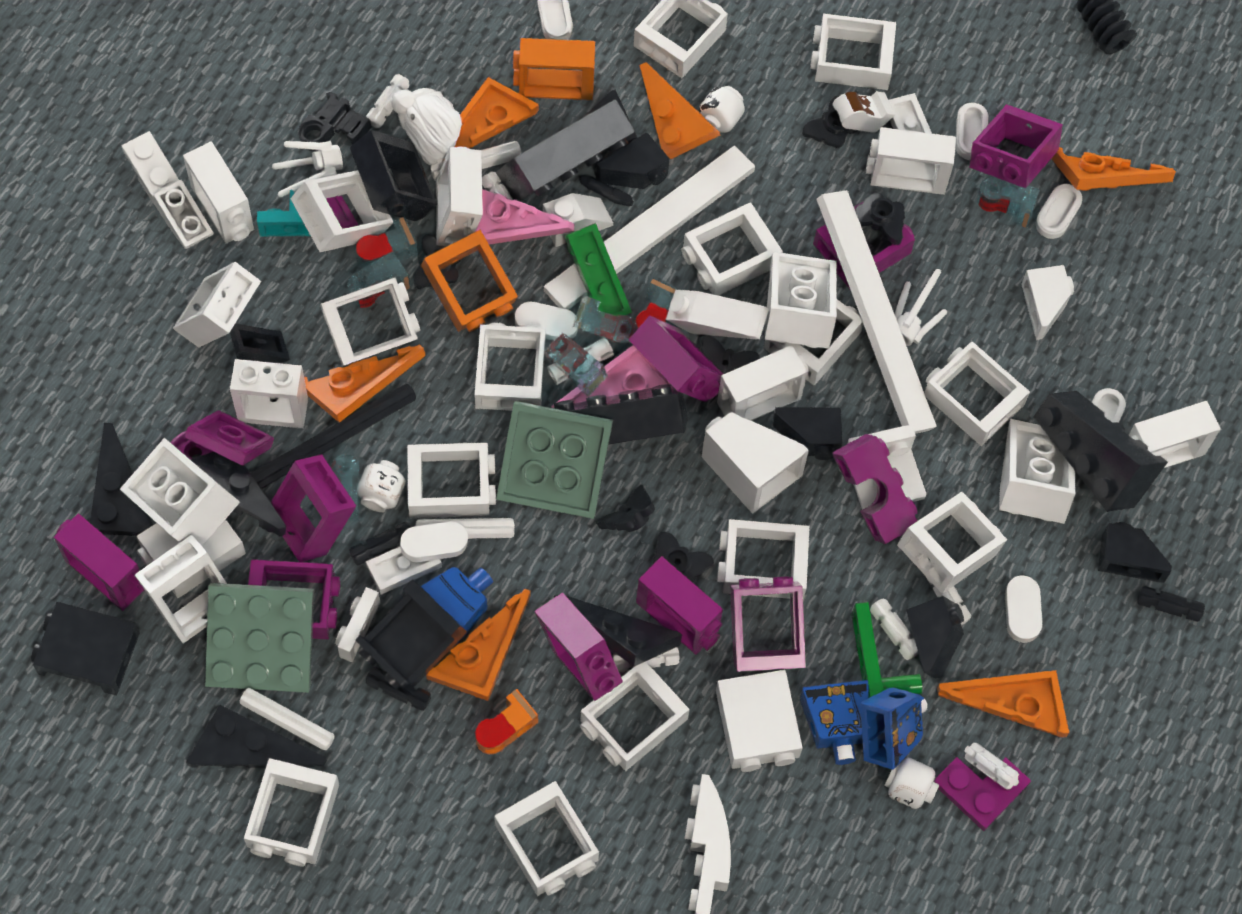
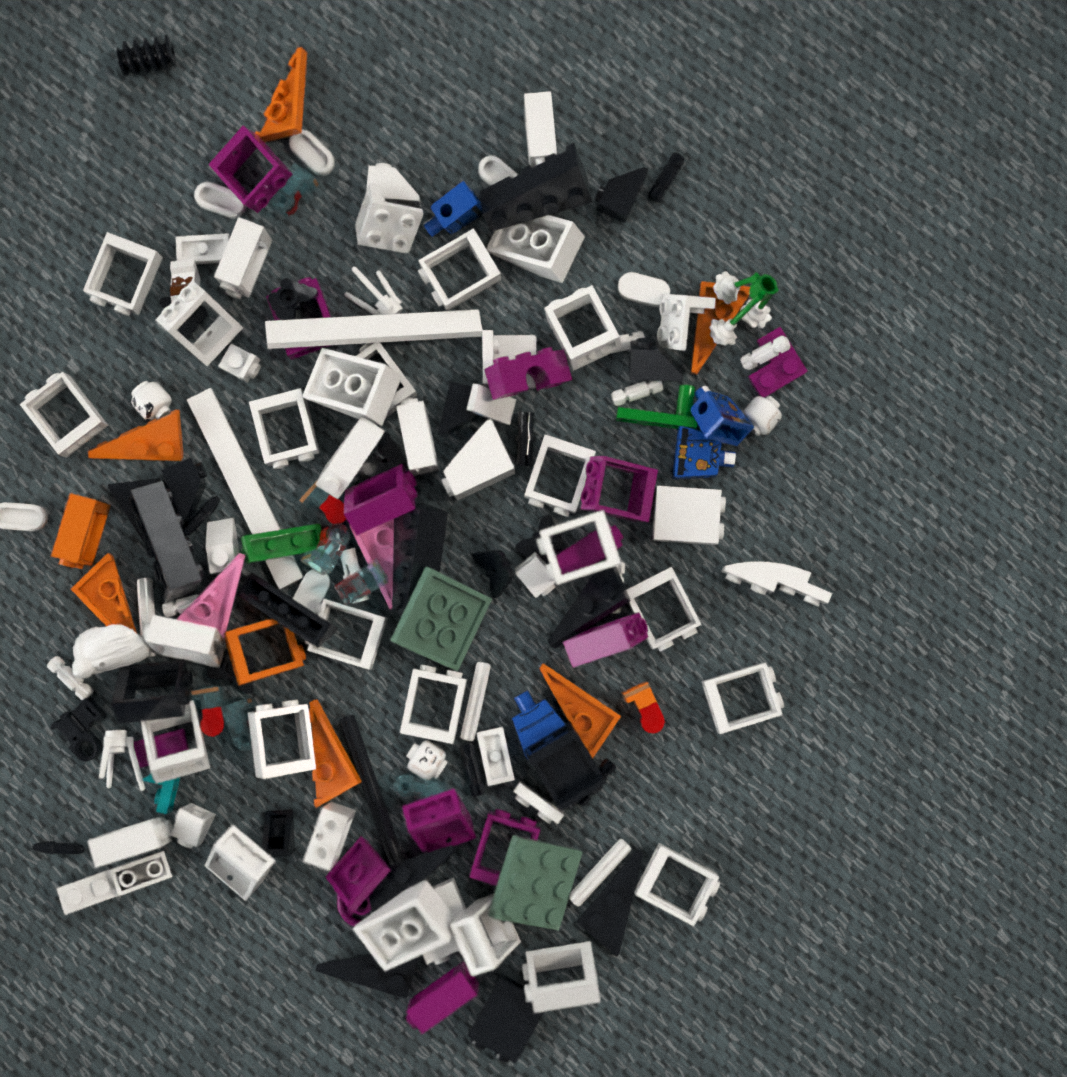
camera: 70 degrees left, 20 degrees up
(133, 701) = (564, 994): none -> white window
(193, 127) = (52, 847): none -> black piece
(251, 250) = (192, 825): none -> white slope
(434, 541) = (486, 729): white tile -> none
(521, 292) = (286, 611): none -> black slope
(634, 557) = (534, 575): none -> white brick
(697, 606) = (605, 538): none -> white window
(792, 191) = (240, 363): none -> white bracket
(798, 511) = (525, 439): none -> black pin
(811, 157) = (214, 338): none -> white window
(823, 469) = (483, 404): none -> white tile
(1003, 300) = (386, 223): none -> white bracket
(1020, 654) = (675, 318): none -> white bracket
(1044, 367) = (464, 209): none -> blue torso
(1058, 707) = (755, 310): none -> white plant

